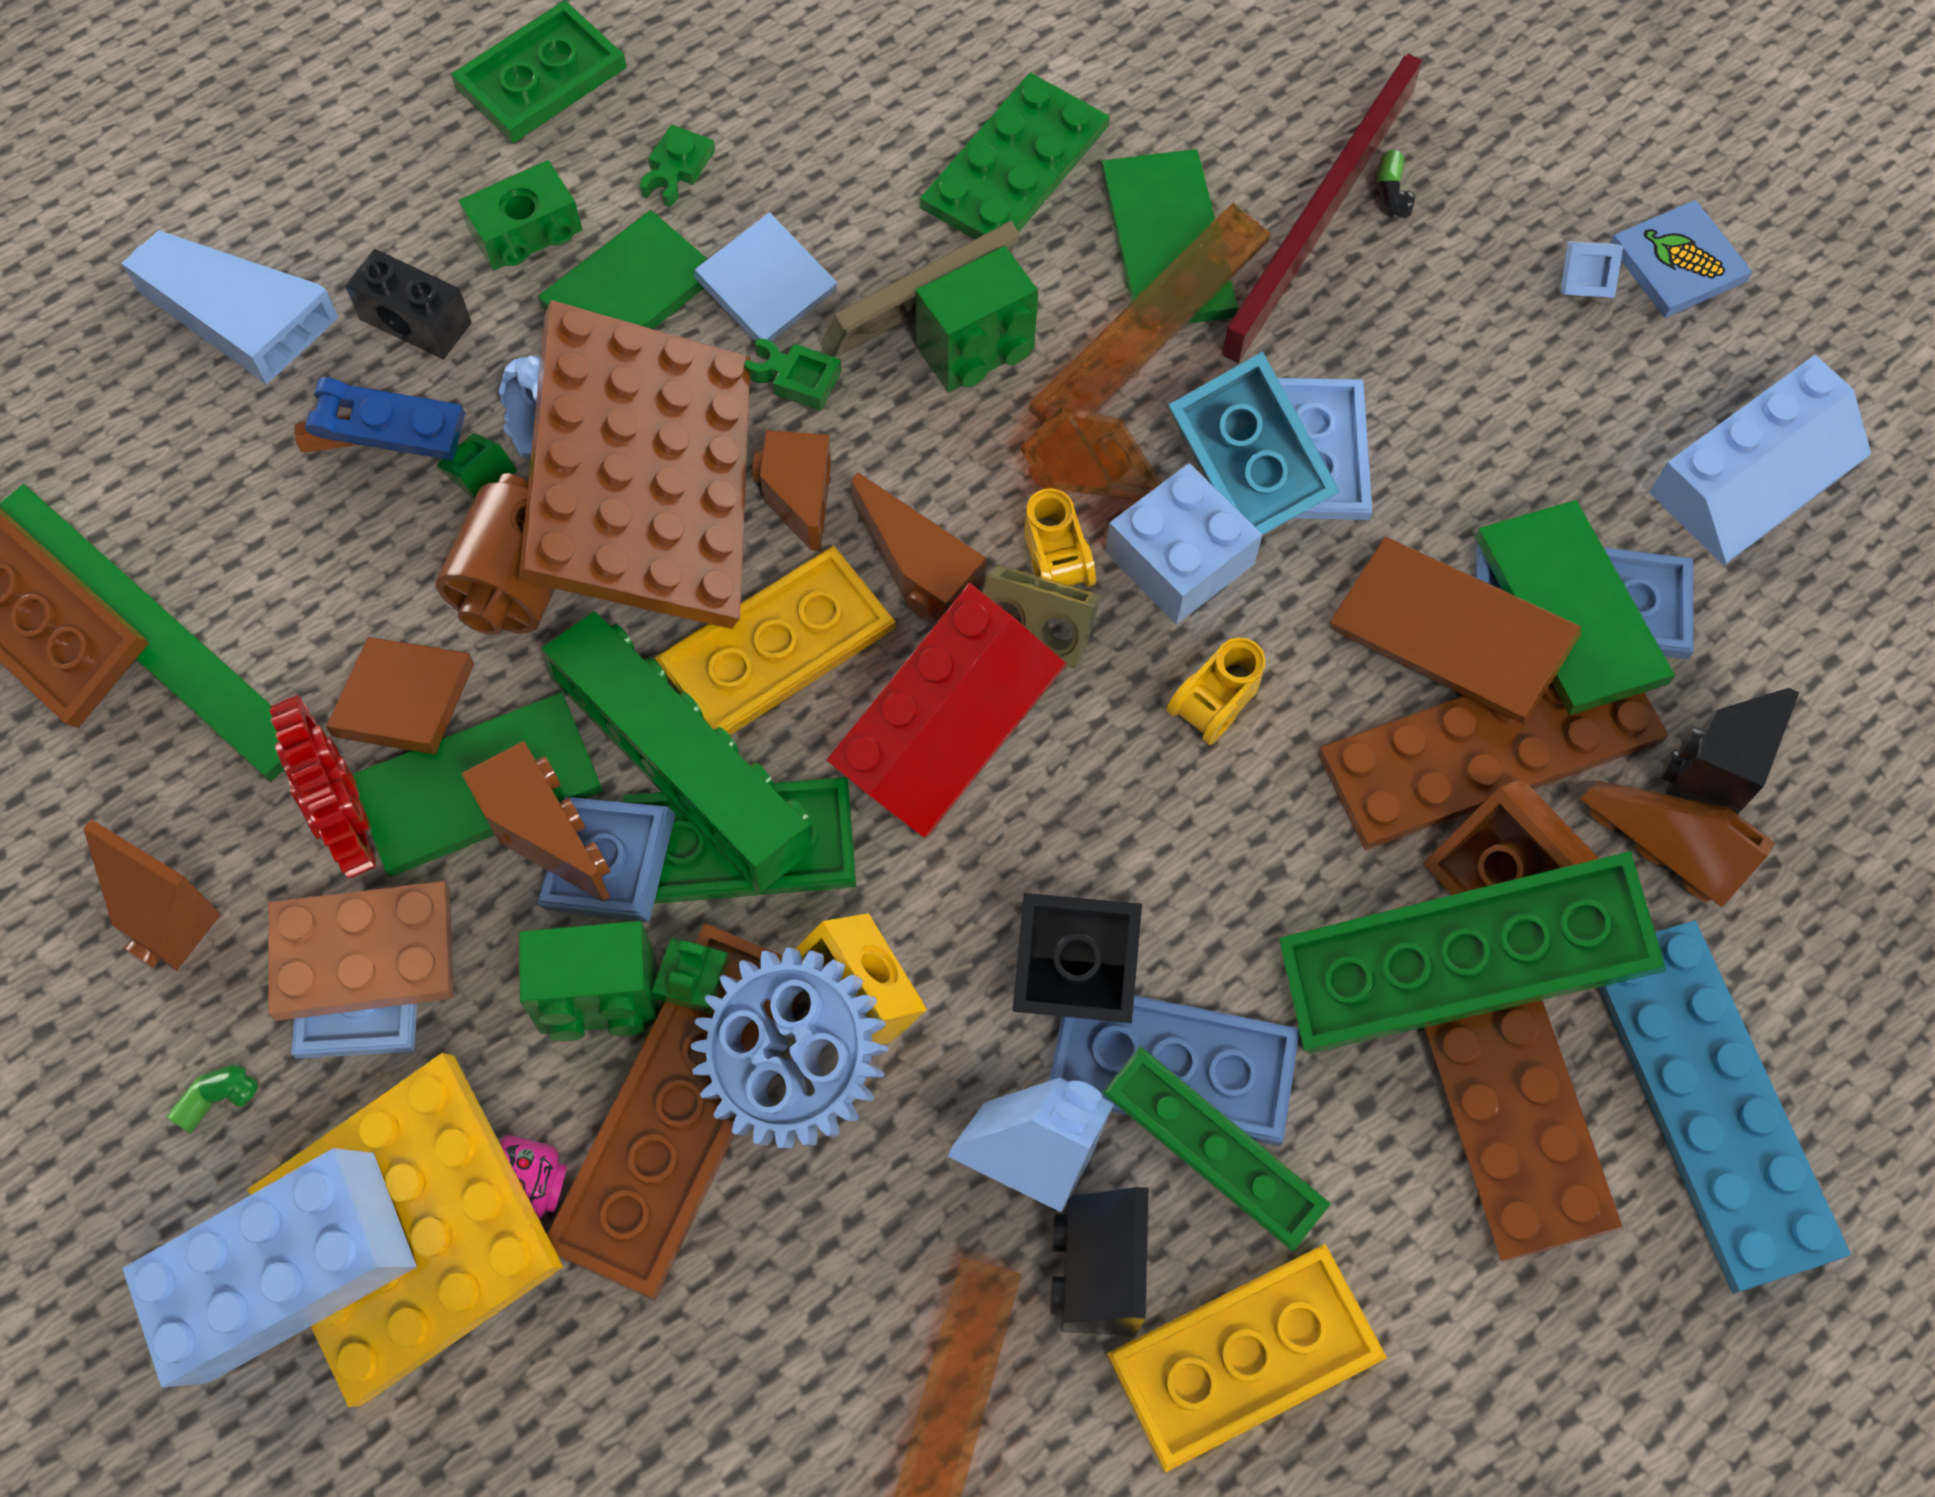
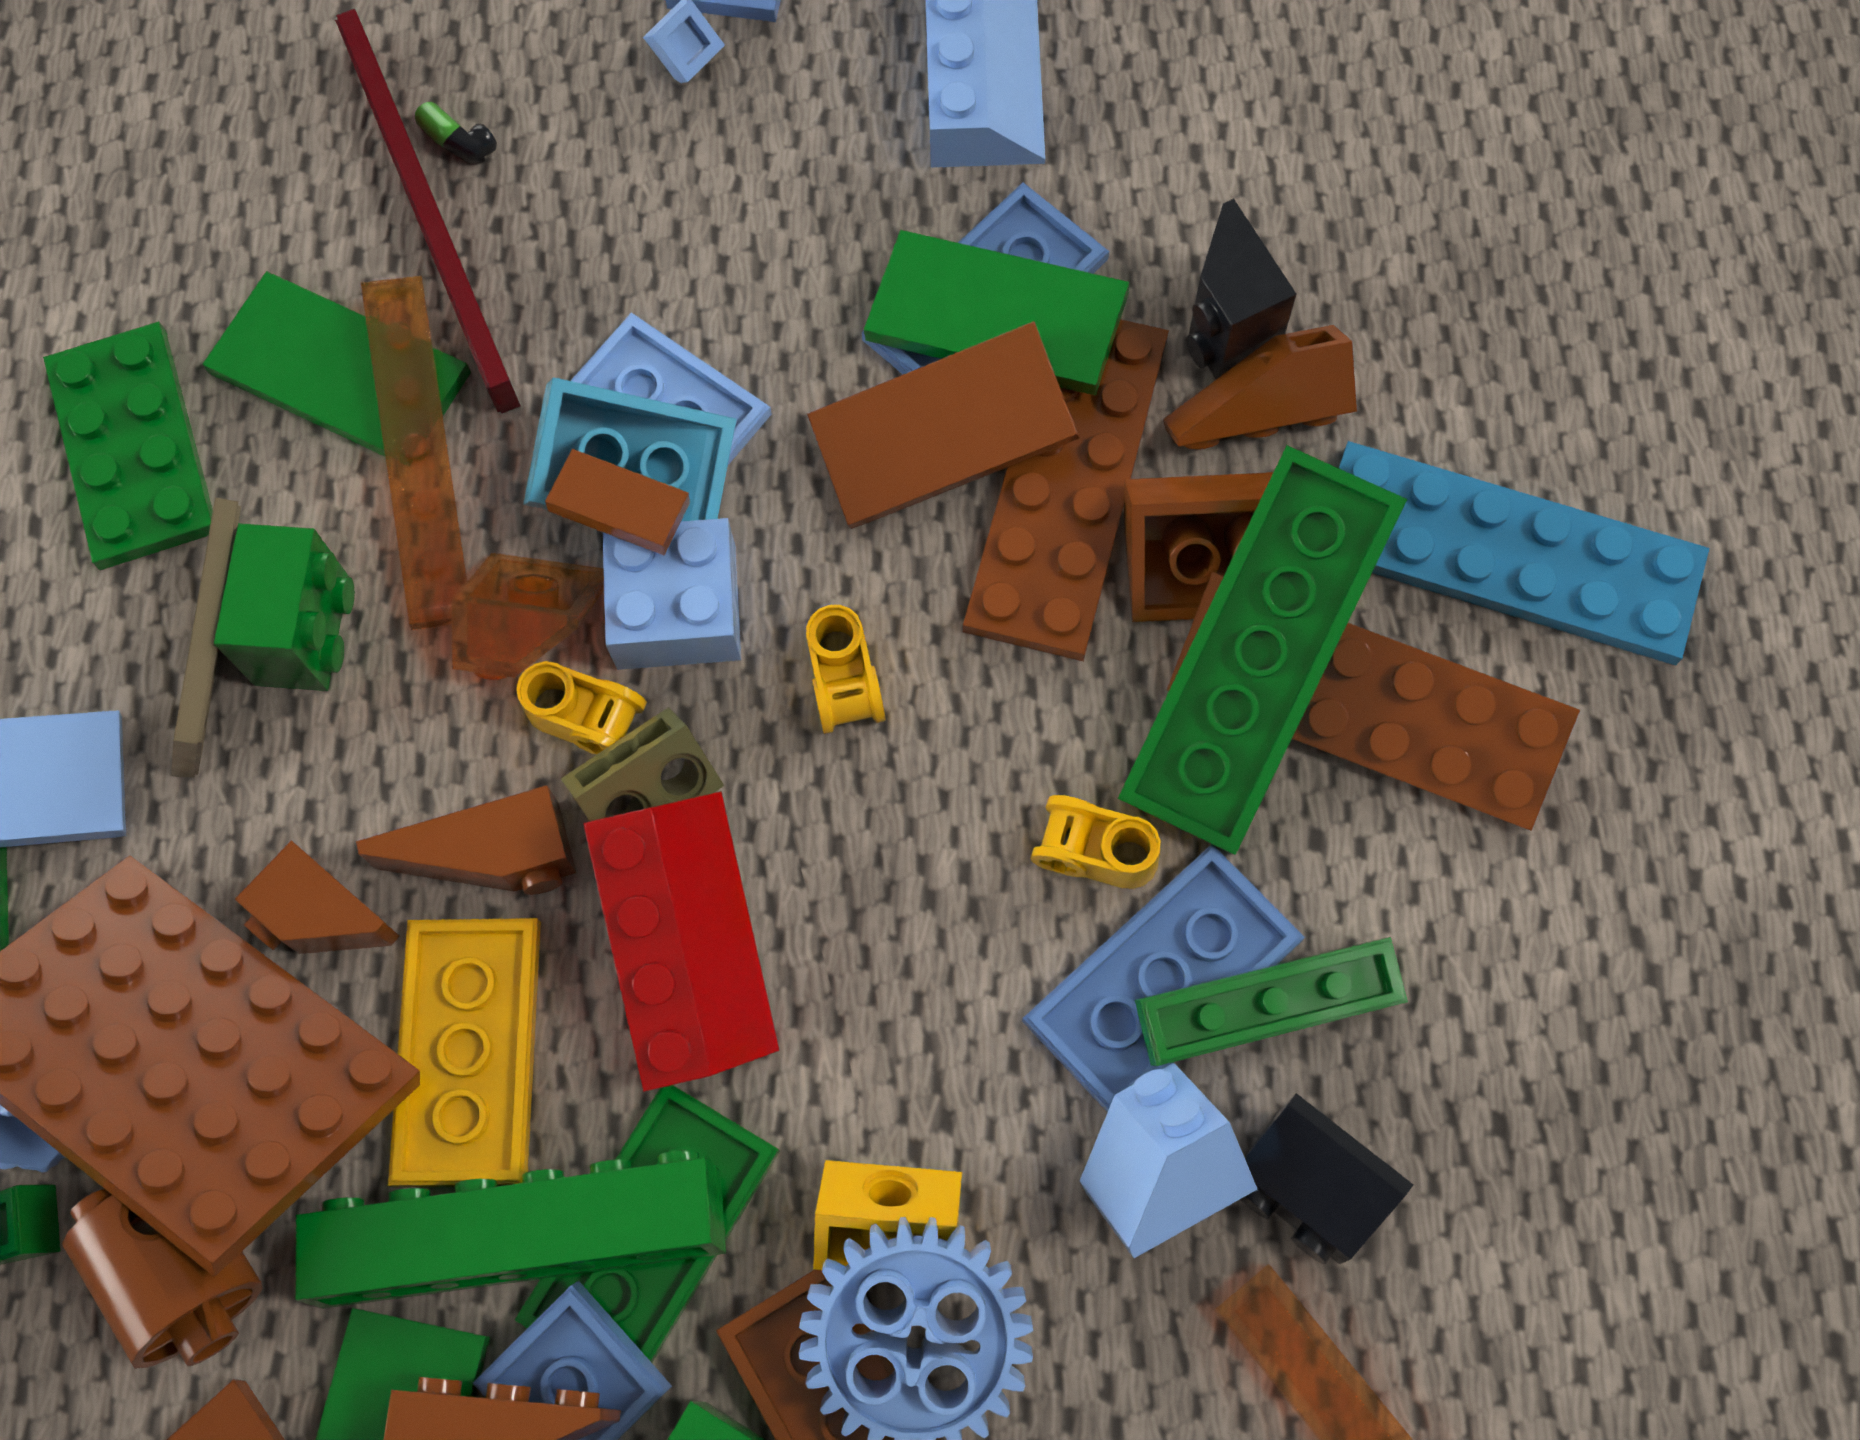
camera: 50 degrees left, 5 degrees up
(690, 974) = (763, 1383): green tile -> none
(799, 376) = (191, 820): green plate -> none
(1077, 958) = (1015, 994): black slope -> none
(1212, 455) = (618, 501): none -> dark orange tile
(1229, 938) = (1091, 843): none -> yellow piece
(1245, 1357) = (1472, 1115): yellow tile -> none

